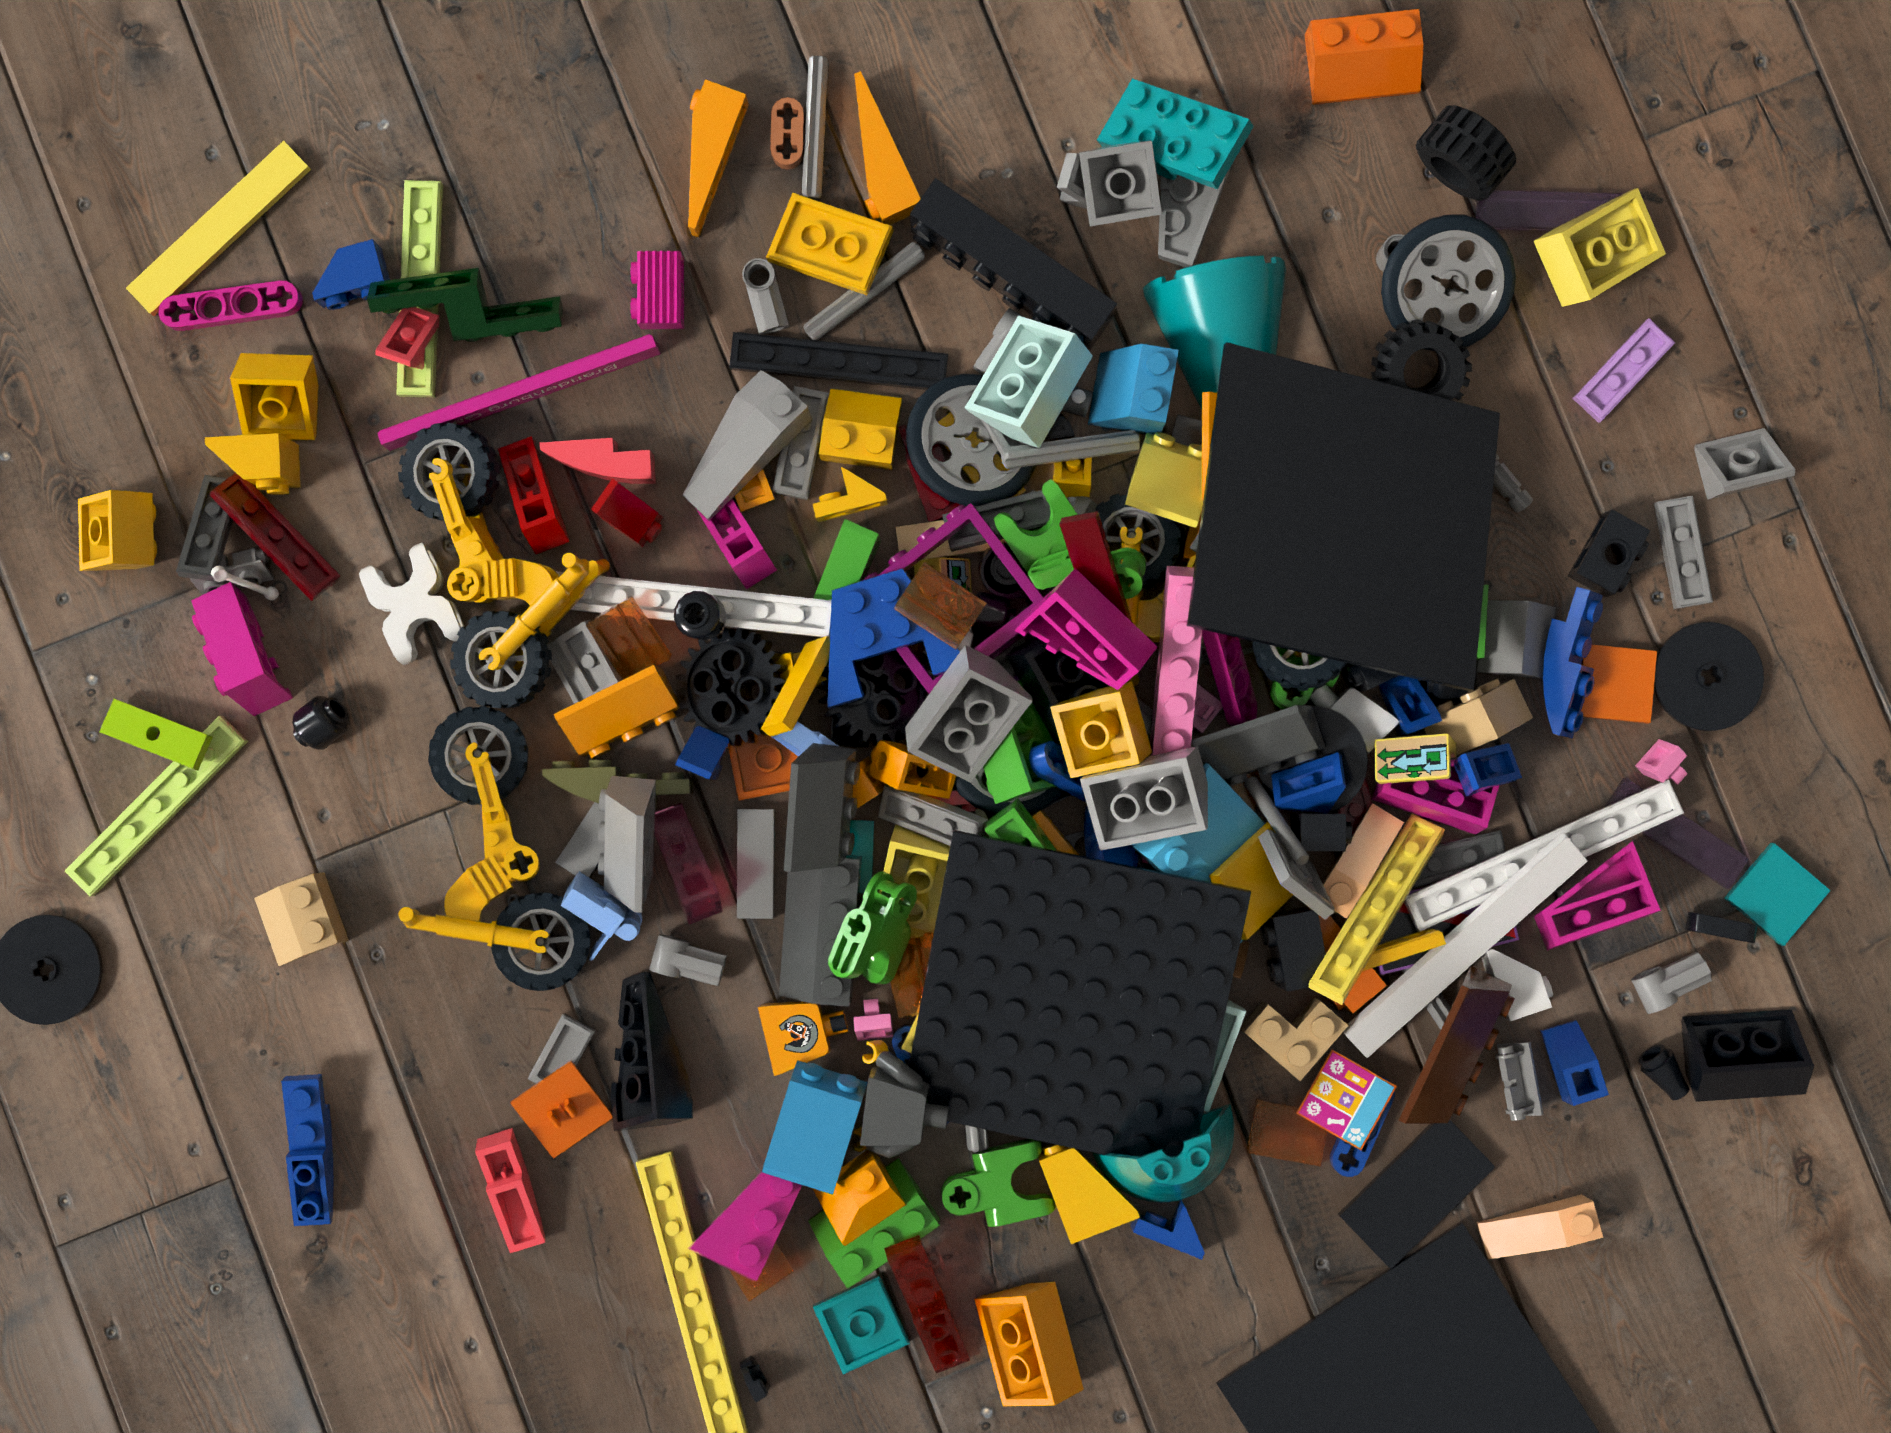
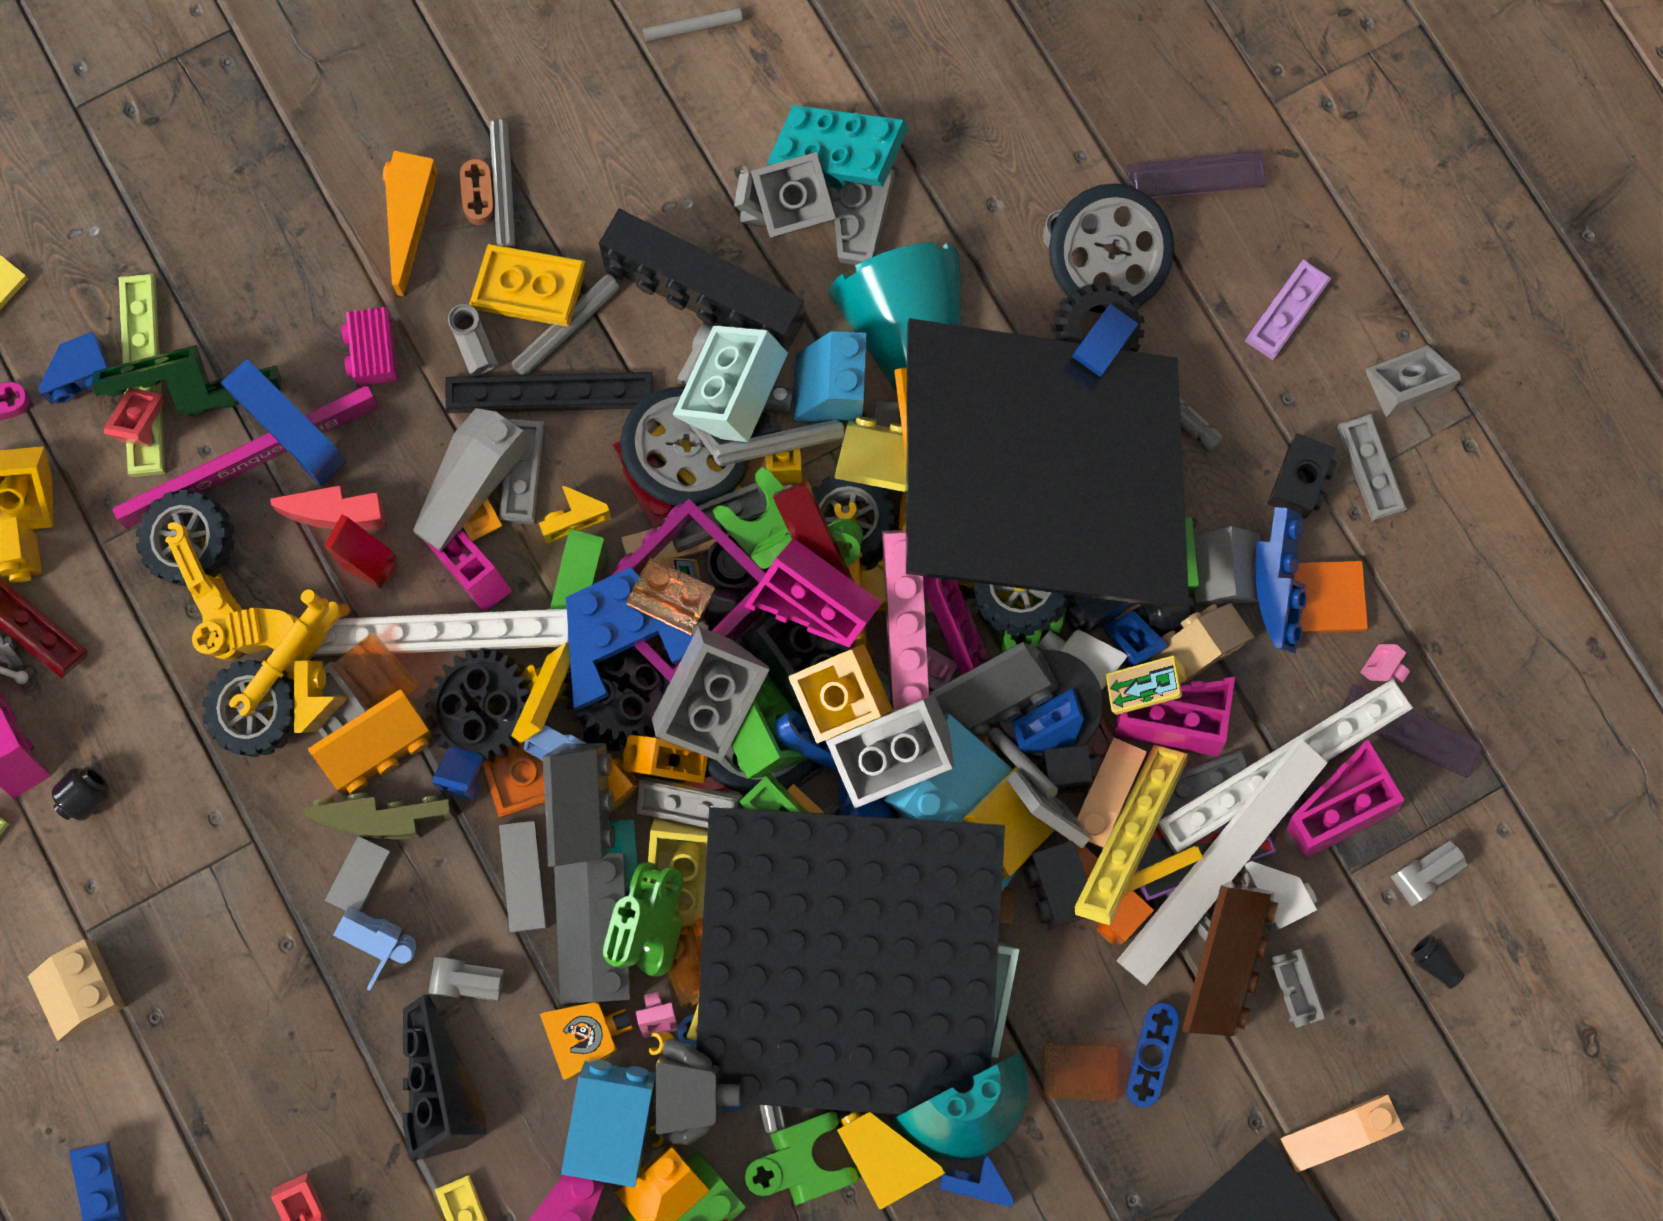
camera: 15 degrees left, 10 degrees down
(412, 603) = (160, 668): white piece -> none
(494, 874) = (268, 913): piece -> none
(533, 496) = (268, 552): red slope -> none
(560, 362) = (284, 422): none -> blue beam
(560, 663) = (310, 706): none -> yellow slope
(562, 1109) = (355, 1146): orange piece -> none
(565, 1044) = (349, 1092): light grey tile -> none
(628, 839) = (393, 863): light grey slope -> none
(686, 865) = (453, 885): clear pink slope -> none
(688, 615) = (440, 637): black head -> none
(860, 429) = (577, 452): yellow slope -> none
(888, 180) = (574, 216): light orange slope -> none
(1296, 1044) = (1073, 982): tan brick -> none
(1346, 1099) = (1132, 1030): piece -> none
(1365, 56) = (1004, 59): orange slope -> none
(1416, 1191) = (1215, 1113): black tile -> none
(1428, 388) = (1105, 340): none -> blue slope
(1466, 152) = (1109, 130): black tyre -> none
(1486, 768) = (1215, 684): blue slope -> none
(1573, 1064) = (1347, 963): blue slope -> none
(1599, 248) = (1246, 201): light yellow slope -> none
(1721, 927) = (1467, 814): black beam -> none
(1734, 666) = (1438, 567): black piece -> none
(1745, 1055) = (1512, 935): black slope -> none
(1777, 894) = (1516, 776): teal tile -> none

